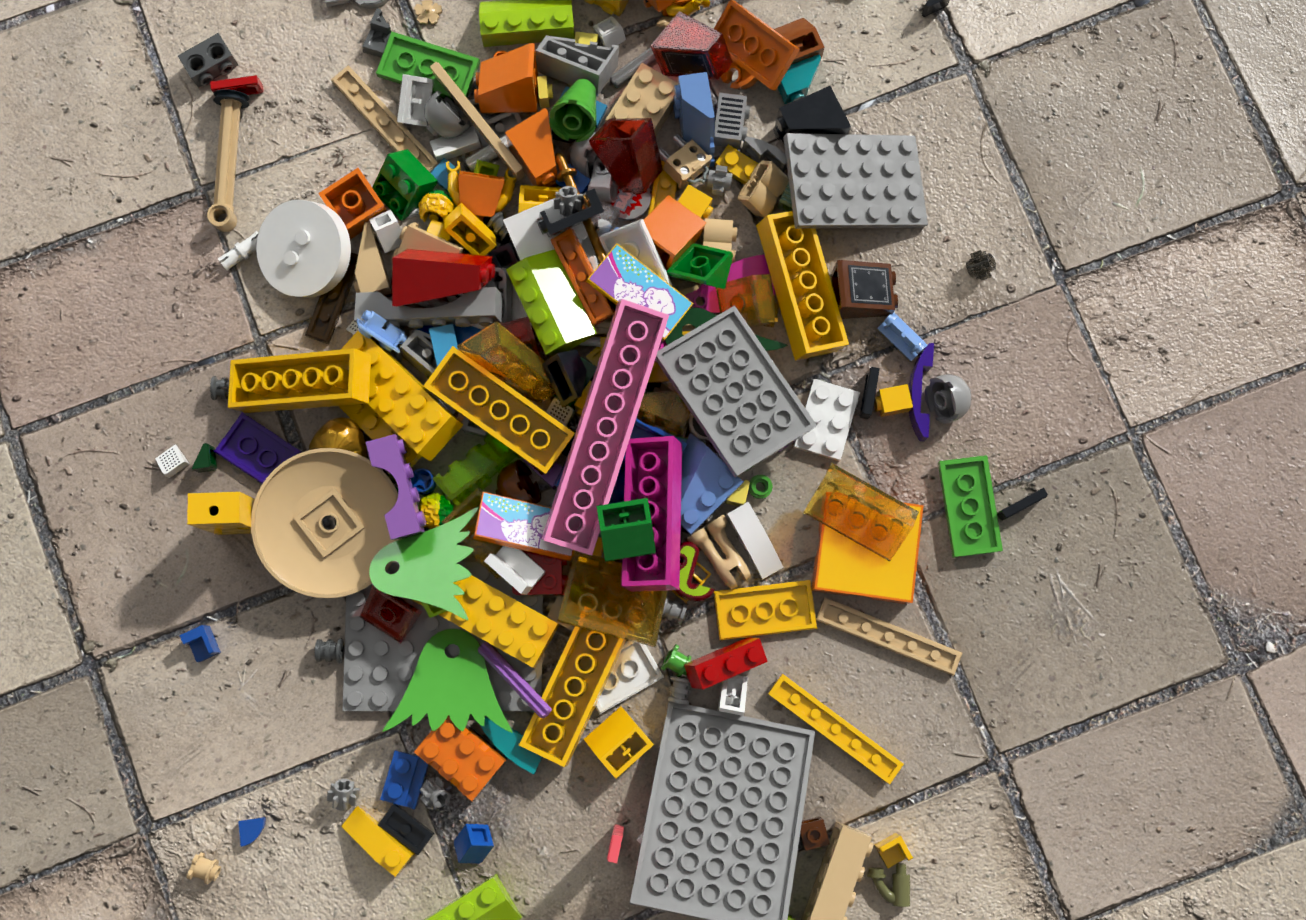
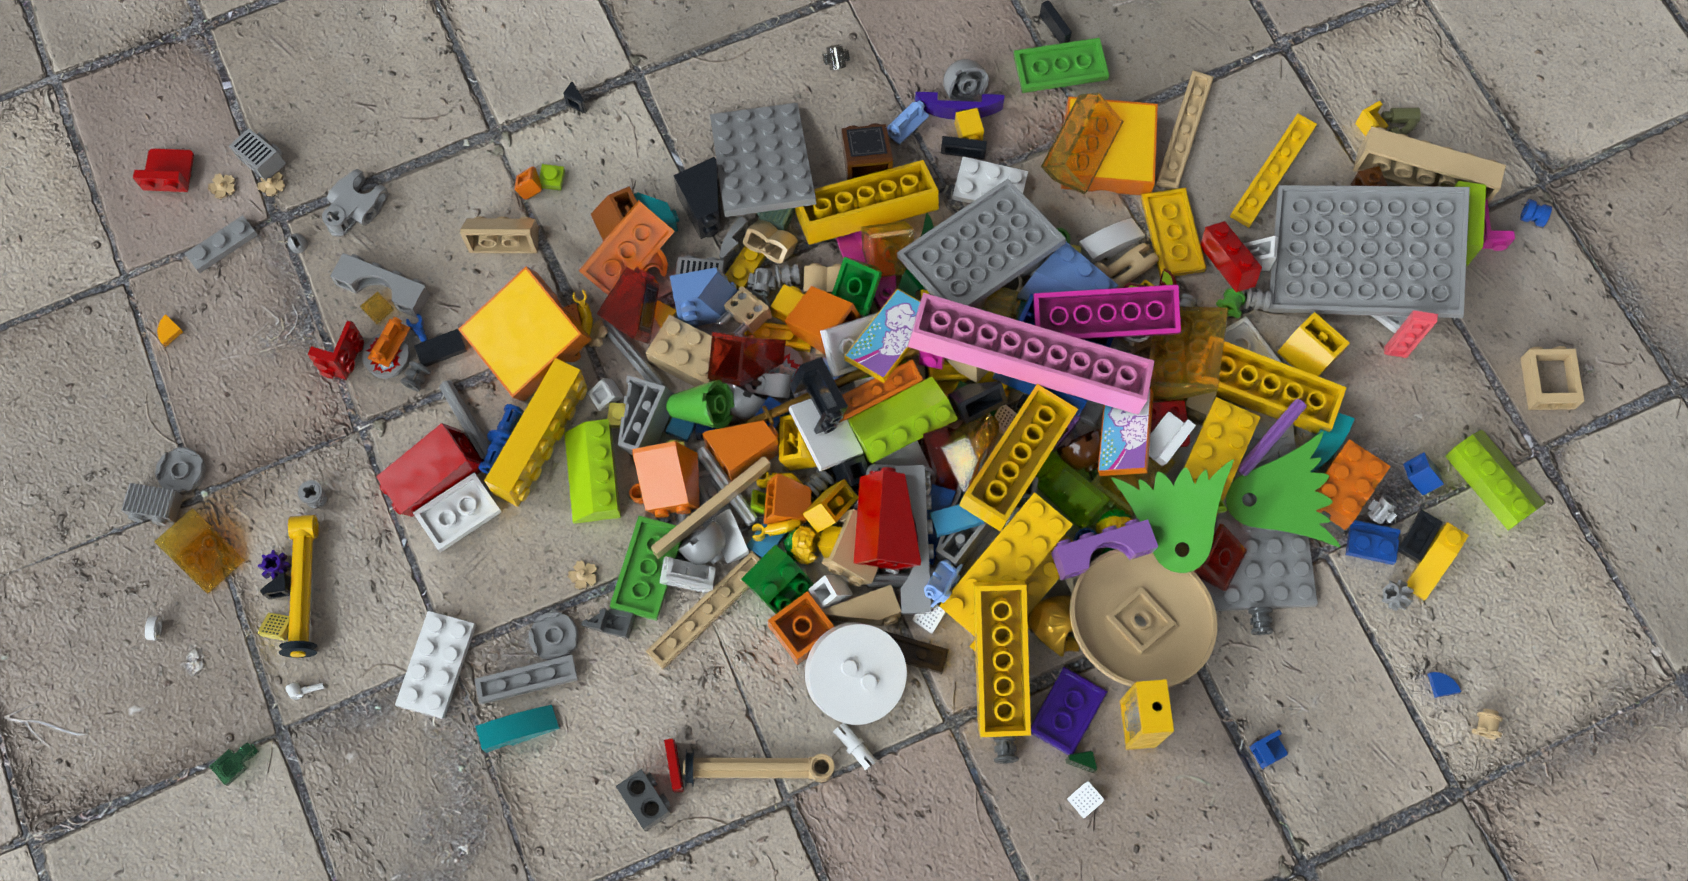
camera: 90 degrees left, 10 degrees down
(568, 201) = (804, 401): light grey gear -> none
(626, 529) = (1130, 324): green slope -> none
(727, 205) = (787, 275): none -> light grey bush

